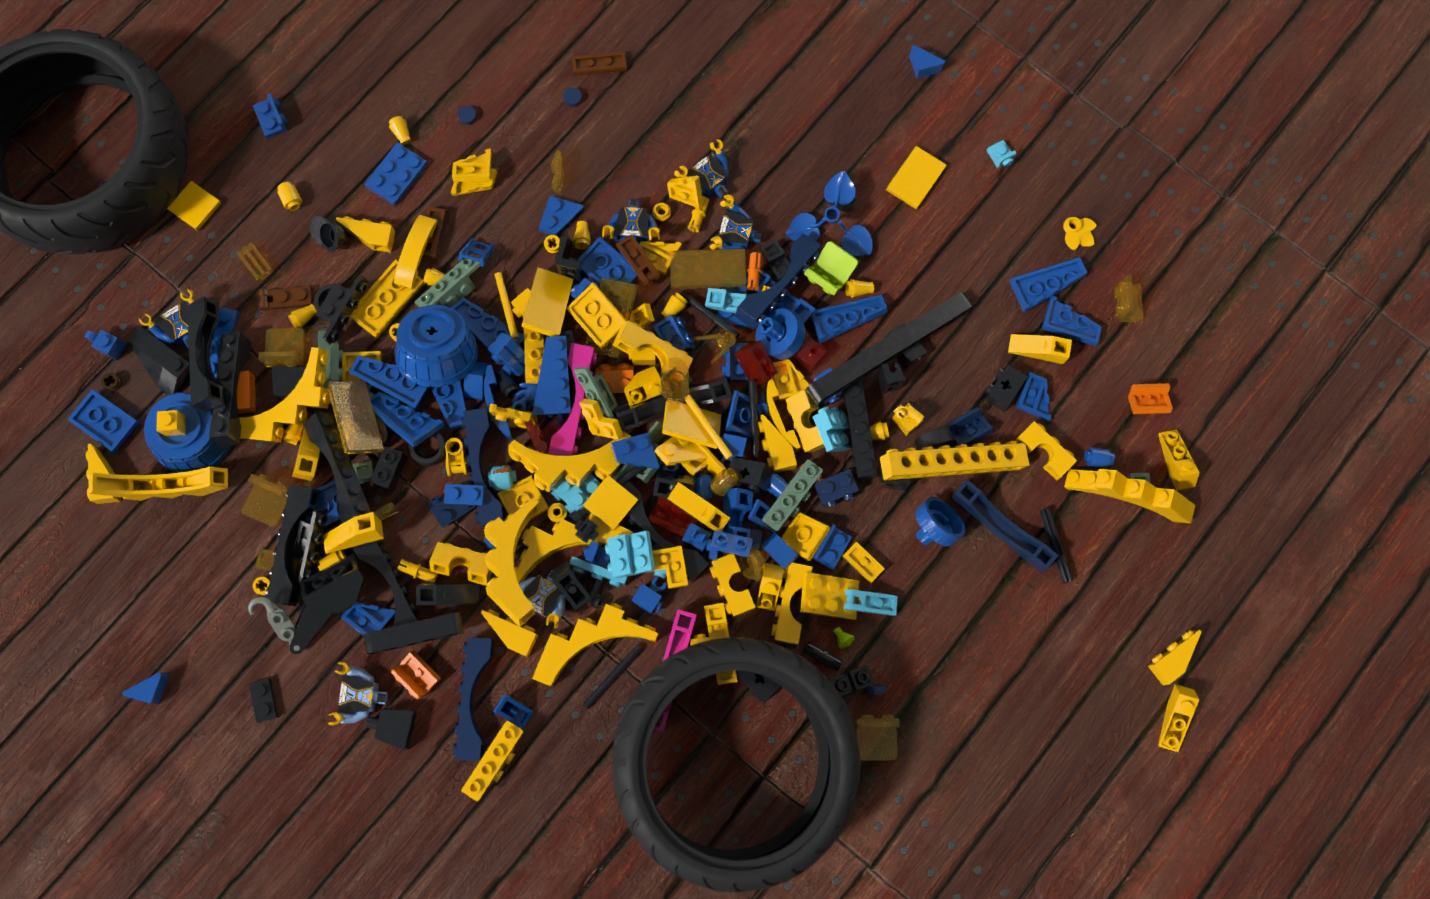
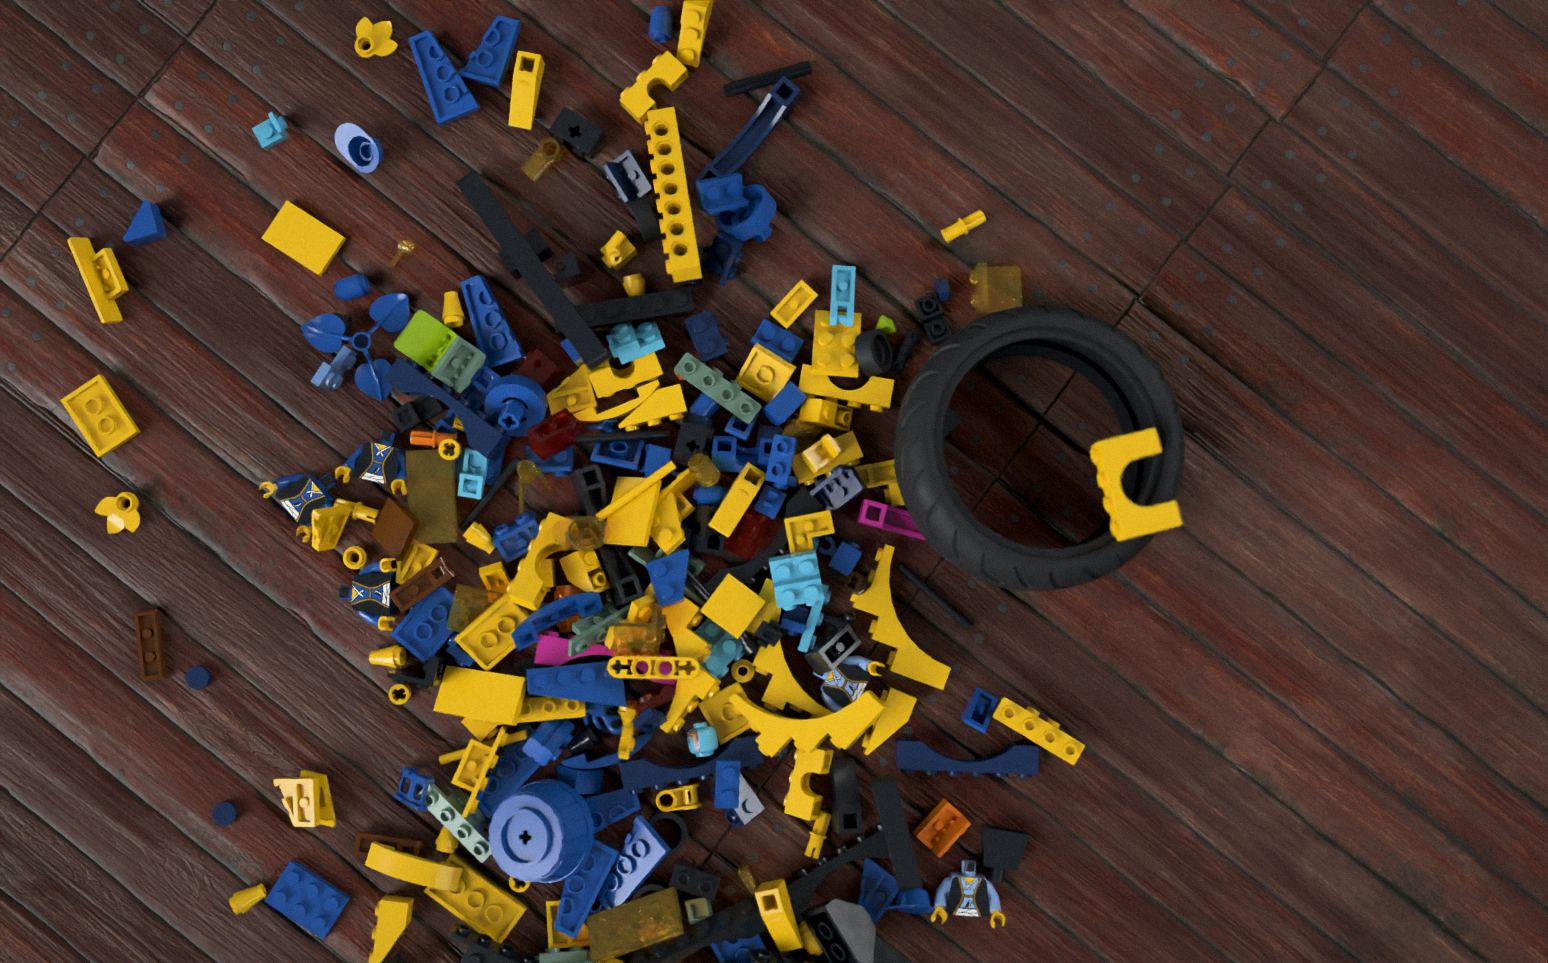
camera: 90 degrees left, 10 degrees up
(356, 648) = (913, 902): none -> blue piece
(491, 297) = (474, 767): none -> yellow bracket
(519, 431) = (649, 720): none -> dark blue plate
(558, 169) = (297, 692): clear yellow slope -> none
(558, 215) = (361, 688): blue wing -> none
(562, 436) = (654, 665): none -> yellow beam
(586, 426) = (640, 638): none -> clear yellow bracket
(595, 336) = (553, 613): none -> blue slope
(625, 606) = (852, 580): none -> dark brown bush
(670, 830) = (1127, 518): none -> yellow arch
(683, 241) = (395, 528): none -> reddish brown tile
(699, 43) = (118, 514): none -> yellow plate
(706, 594) = (839, 488): none -> dark blue bracket
(735, 578) = (821, 453): none -> yellow bracket
(744, 287) = (442, 448): none -> yellow bush
(776, 29) = (100, 416): none -> yellow plate
(806, 196) = (330, 376): none -> medium blue plate
(813, 290) = (459, 364): none -> sand green bracket
(819, 618) = (873, 352): none -> black tyre
(877, 212) = (352, 287): none -> blue brick
(883, 30) = (101, 277): none -> yellow bracket
(903, 504) = (724, 256): none -> dark blue bracket
(909, 252) = (403, 247): none -> clear yellow hand
(932, 710) = (963, 225): none -> yellow axle
(955, 500) = (721, 194): none -> blue bracket
(981, 358) = (539, 162): none -> clear yellow piece
(988, 218) = (358, 147): none -> piece
(1034, 397) = (587, 98): blue wing -> none

